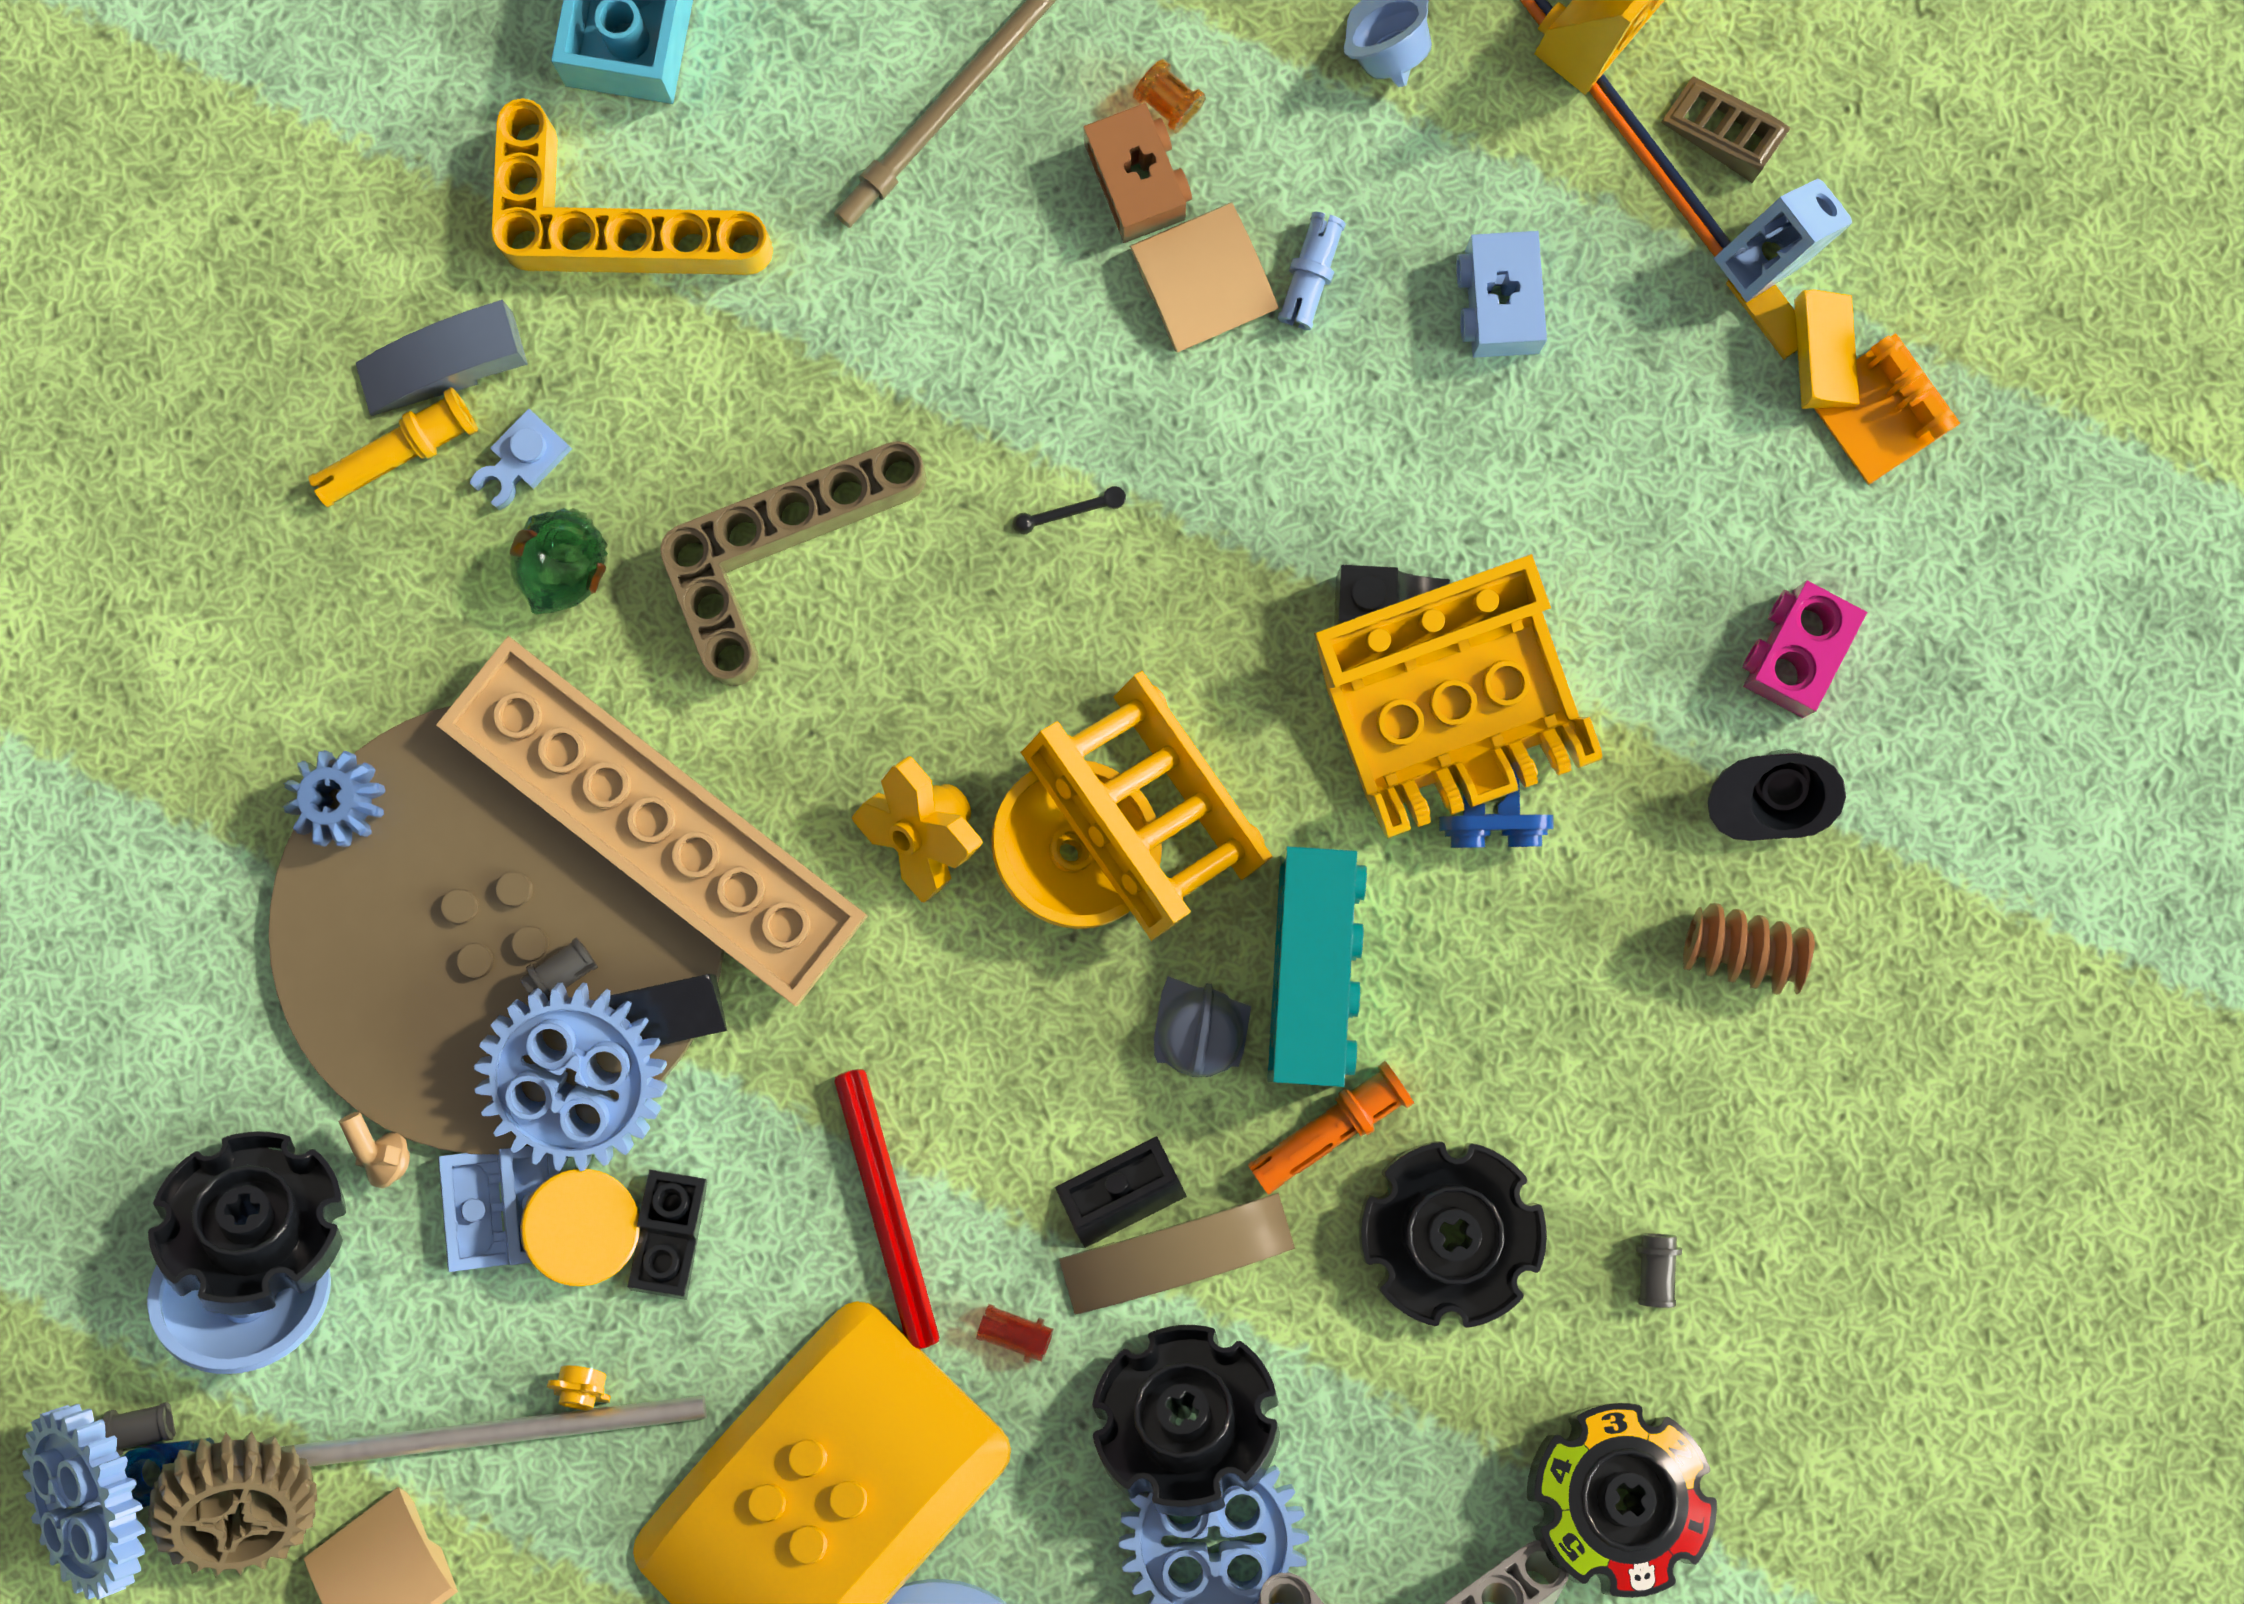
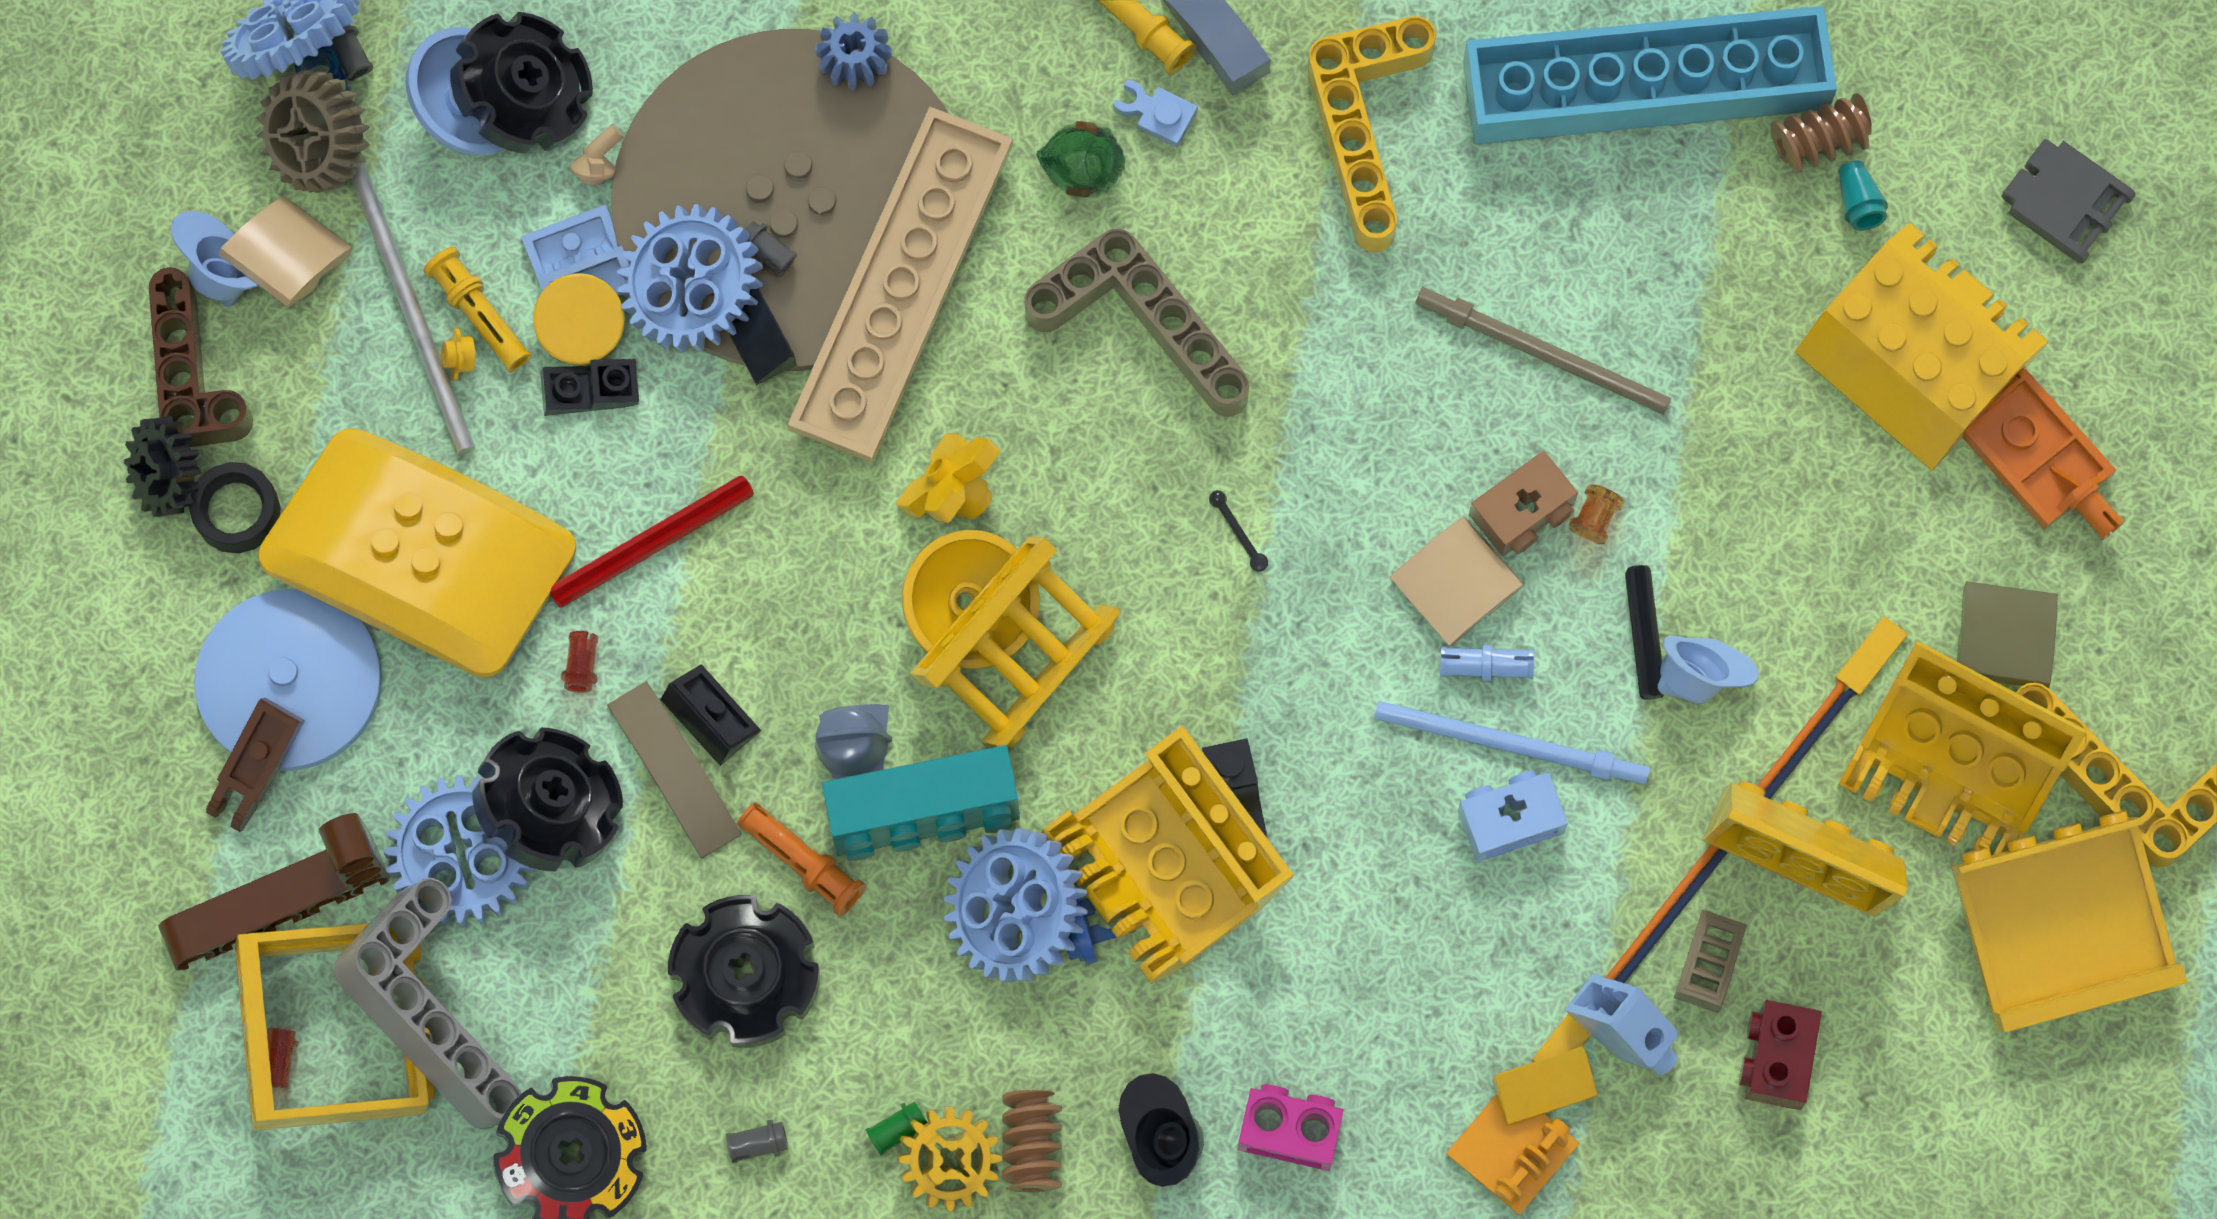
camera: 75 degrees right, 10 degrees down
(503, 1358) = (511, 351): none -> yellow pin
(1322, 85) = (1644, 630): none -> black axle
(1463, 183) = (1601, 765): none -> light blue bar
(1512, 864) = (1015, 905): none -> light blue gear
(1683, 1100) = (889, 1131): none -> green pin
(1723, 1034) = (932, 1173): none -> yellow gear
(1858, 80) = (1781, 1054): none -> dark red brick

